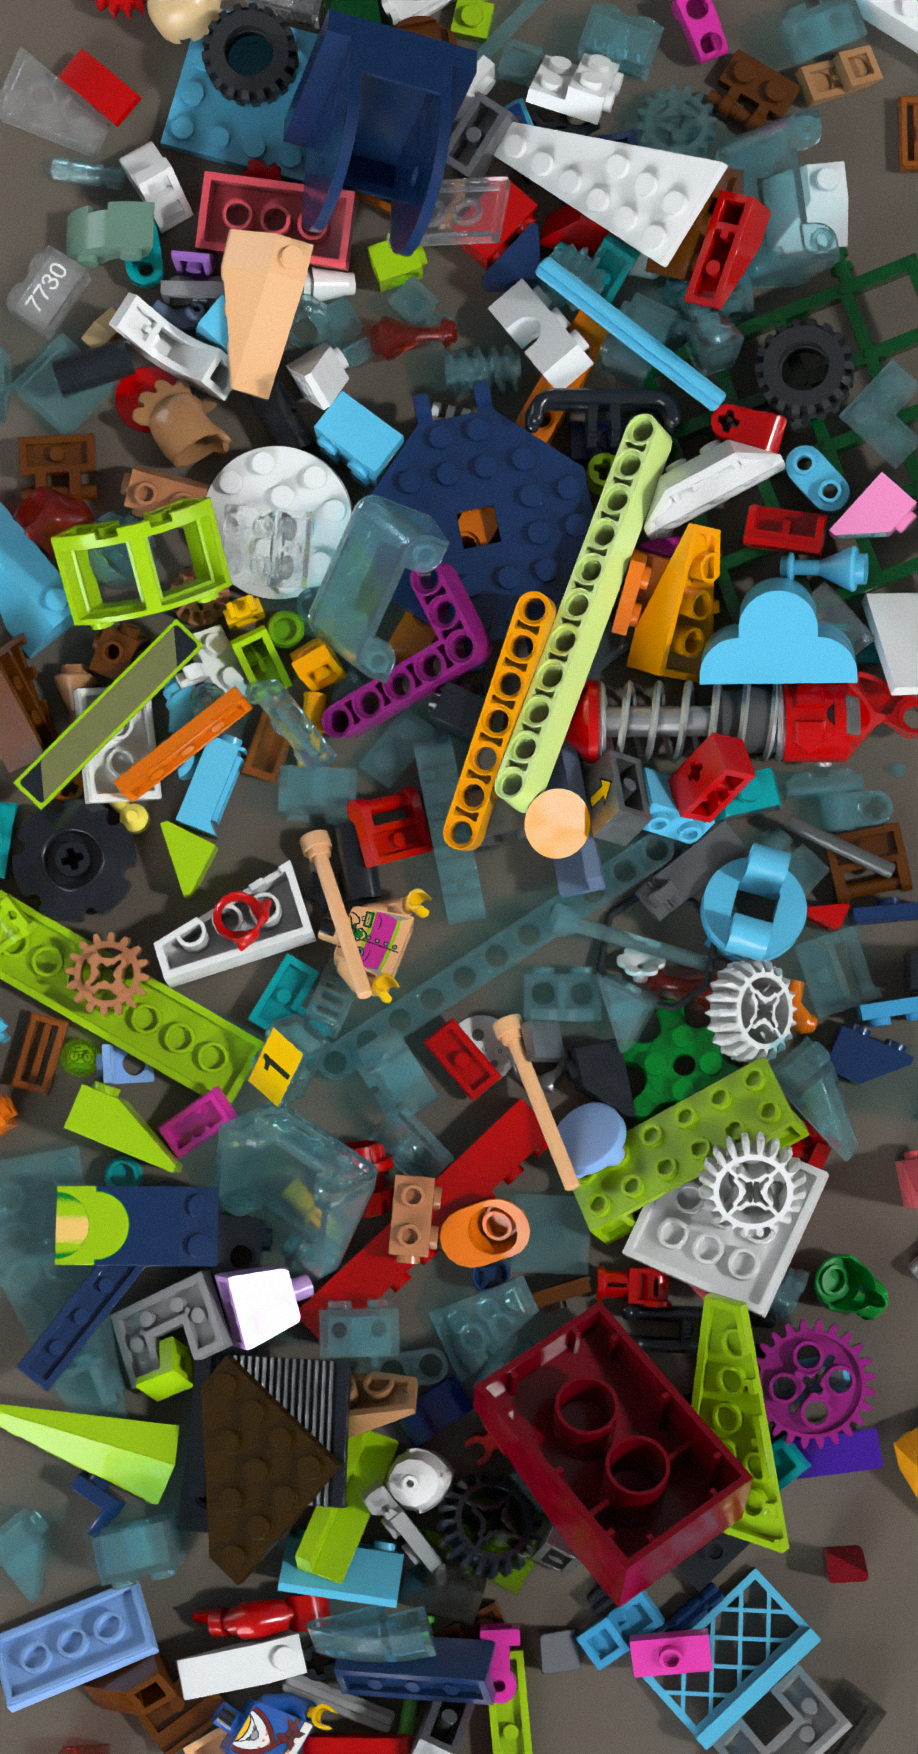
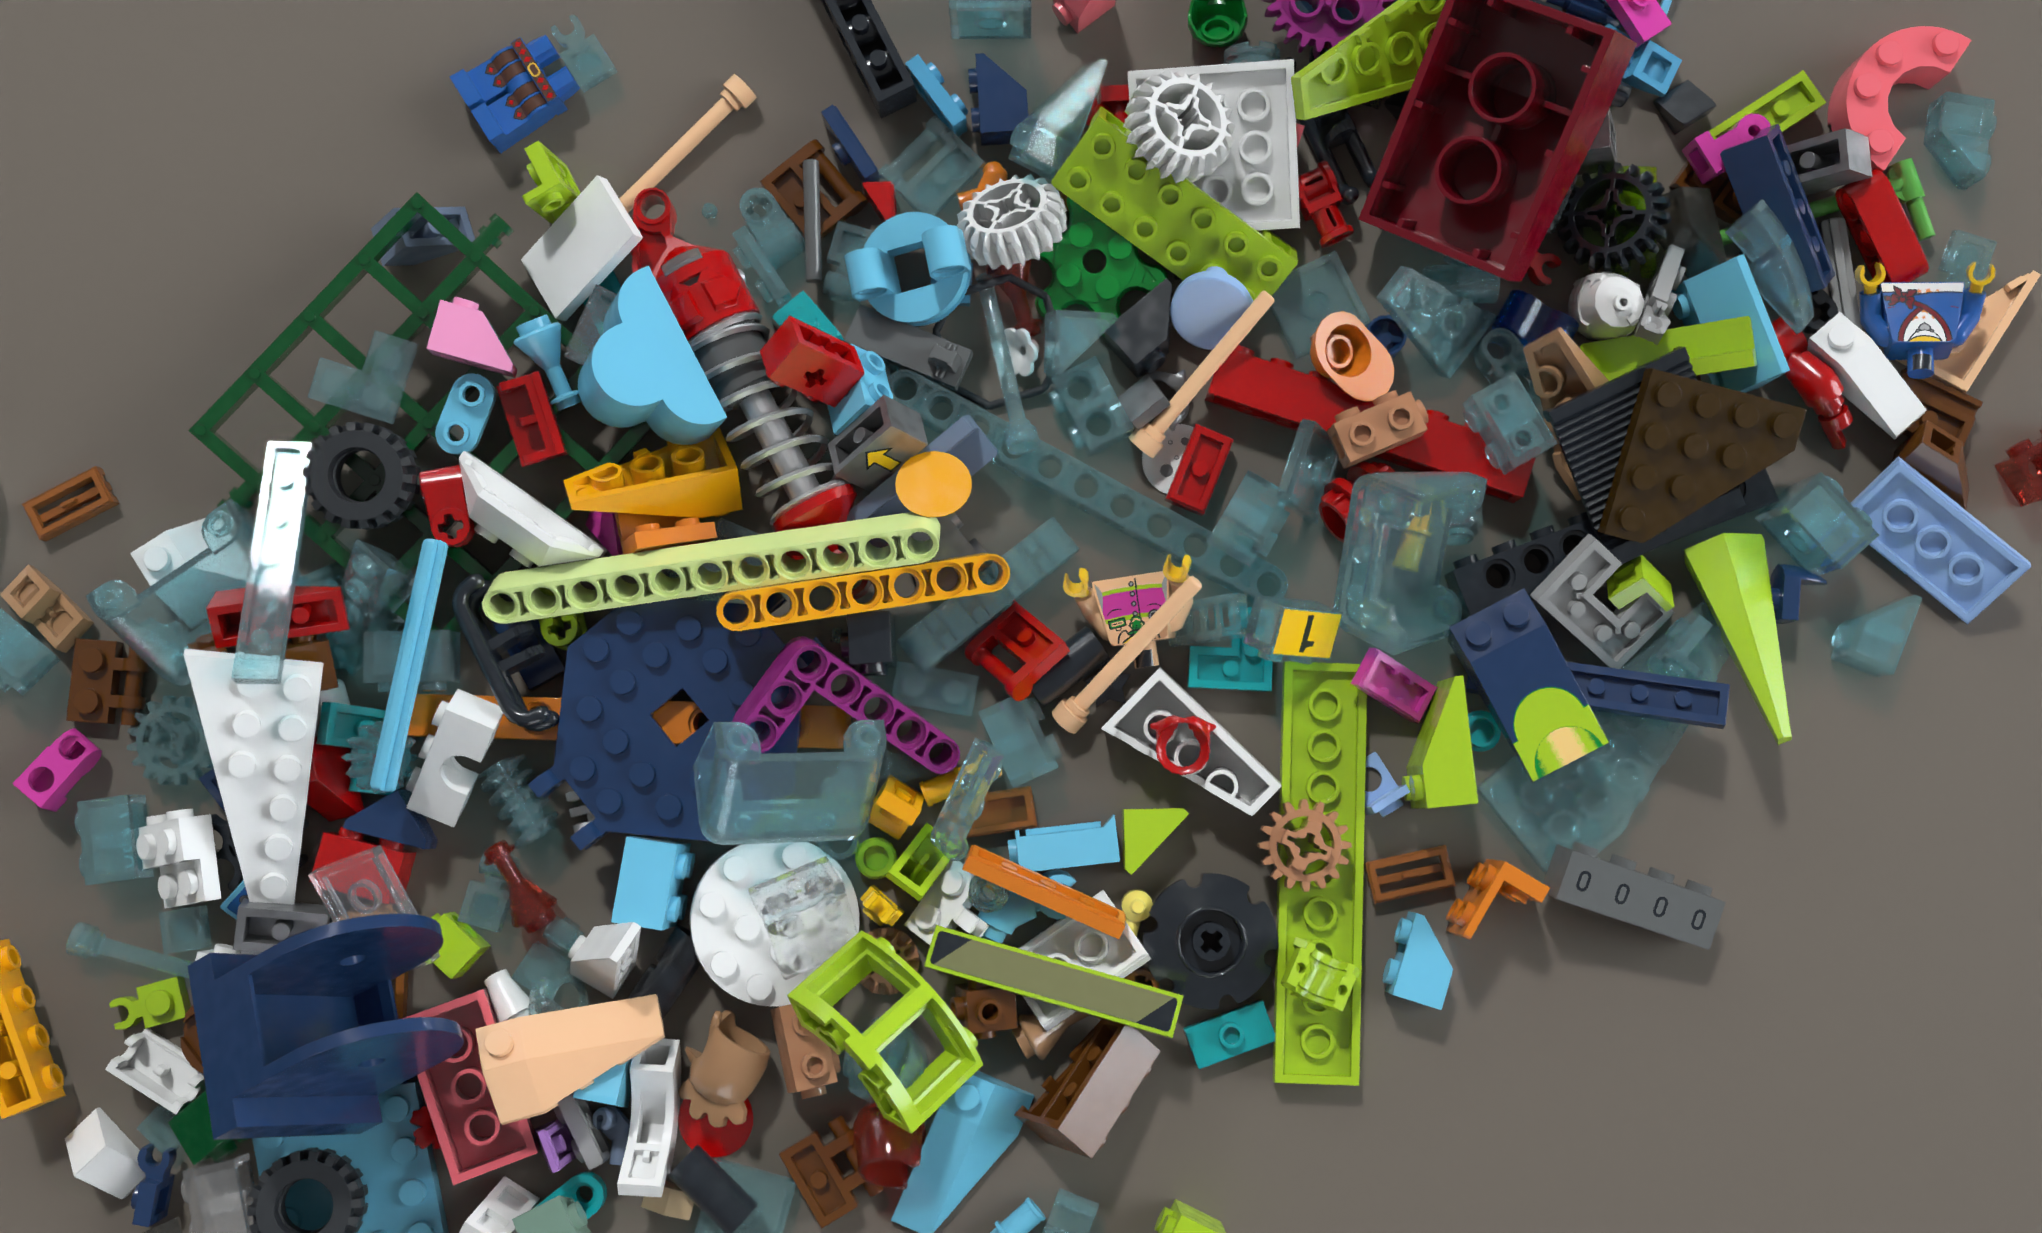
camera: 120 degrees left, 0 degrees up
(79, 1057) = (1392, 833): clear neon green tile -> none
(261, 1302) = (1533, 530): torso -> none
(555, 1296) = (1368, 270): reddish brown plate -> none
(765, 266) = (272, 566): none -> clear light blue tile

